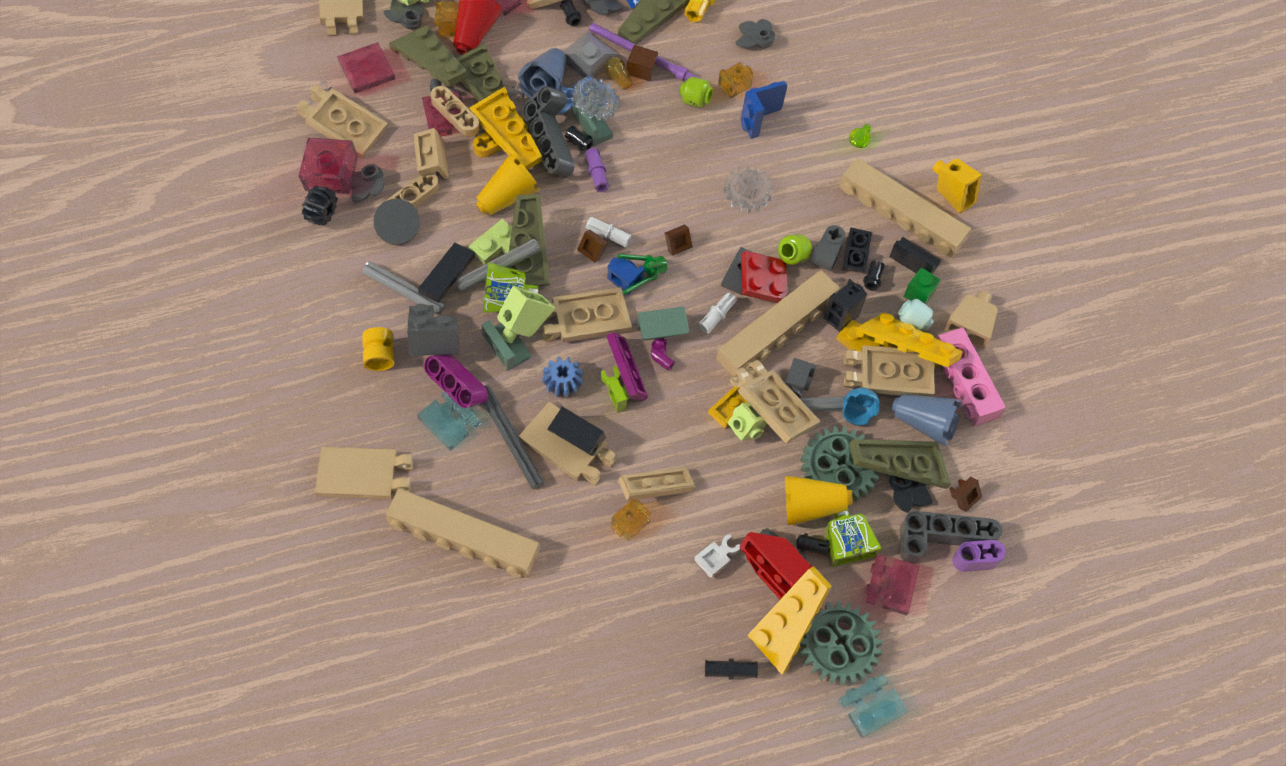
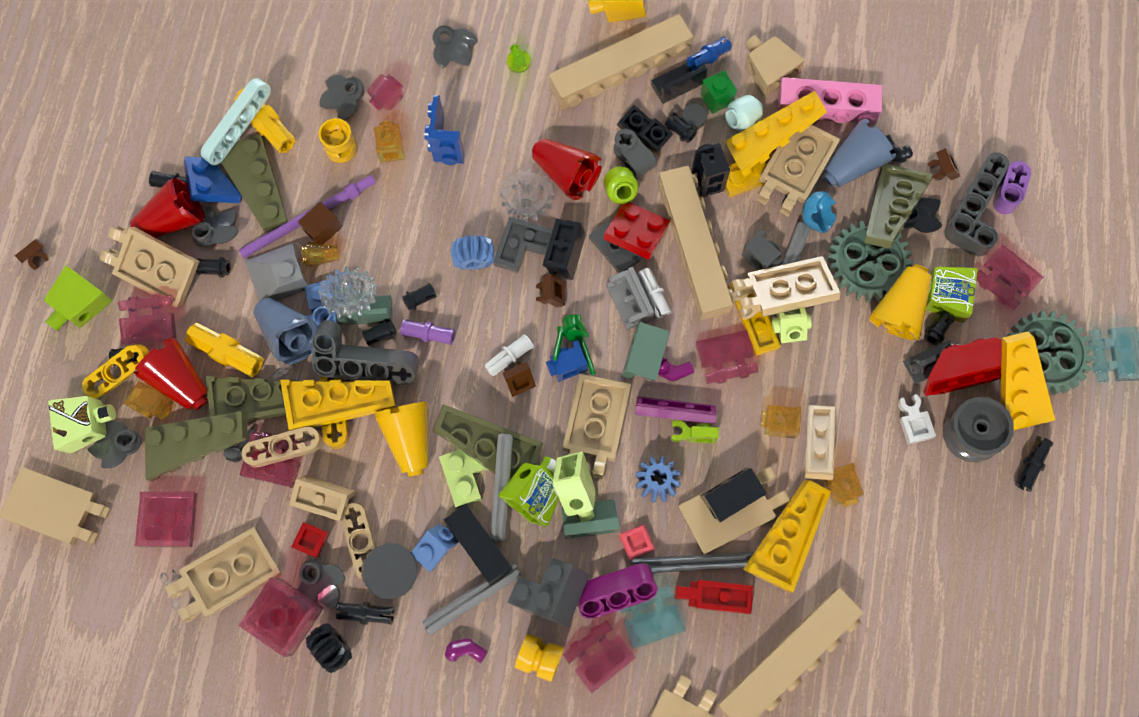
camera: 55 degrees left, 10 degrees up
(357, 221) = (365, 613): none -> black pin
(361, 295) = (464, 647): none -> magenta arm
(395, 163) = (310, 540): none -> red plate
(396, 399) = (604, 663): none -> clear pink plate
(430, 243) = (434, 546): none -> medium blue bracket
(488, 460) = (717, 596): none -> red hinge
(505, 385) = (636, 542): none -> coral tile
(510, 47) = (224, 349): none -> yellow piece
(559, 493) = (788, 542): none -> yellow wing
(622, 152) = (418, 296): none -> black pin
(660, 457) = (788, 429): none -> clear yellow brick
(676, 169) = (472, 252): none -> medium blue gear
(696, 92) = (385, 188): lime head -> none
(700, 386) = (723, 350): none -> clear pink plate
(705, 296) = (630, 298): none -> light grey hinge
(706, 198) = (517, 239): none -> dark grey plate
(715, 44) = (337, 140): none -> yellow wheel
(718, 233) = (564, 248): none -> black hinge
(747, 601) = (978, 429): none -> dark grey wheel
(775, 59) = (385, 92): none -> clear pink head
(786, 207) = (567, 166): none -> red cone
(844, 90) = (455, 48): none -> dark grey plate
(891, 282) = (695, 115): none -> dark grey tile
(953, 268) = (709, 53): none -> blue pin
(954, 448) = (901, 153): none -> black arm

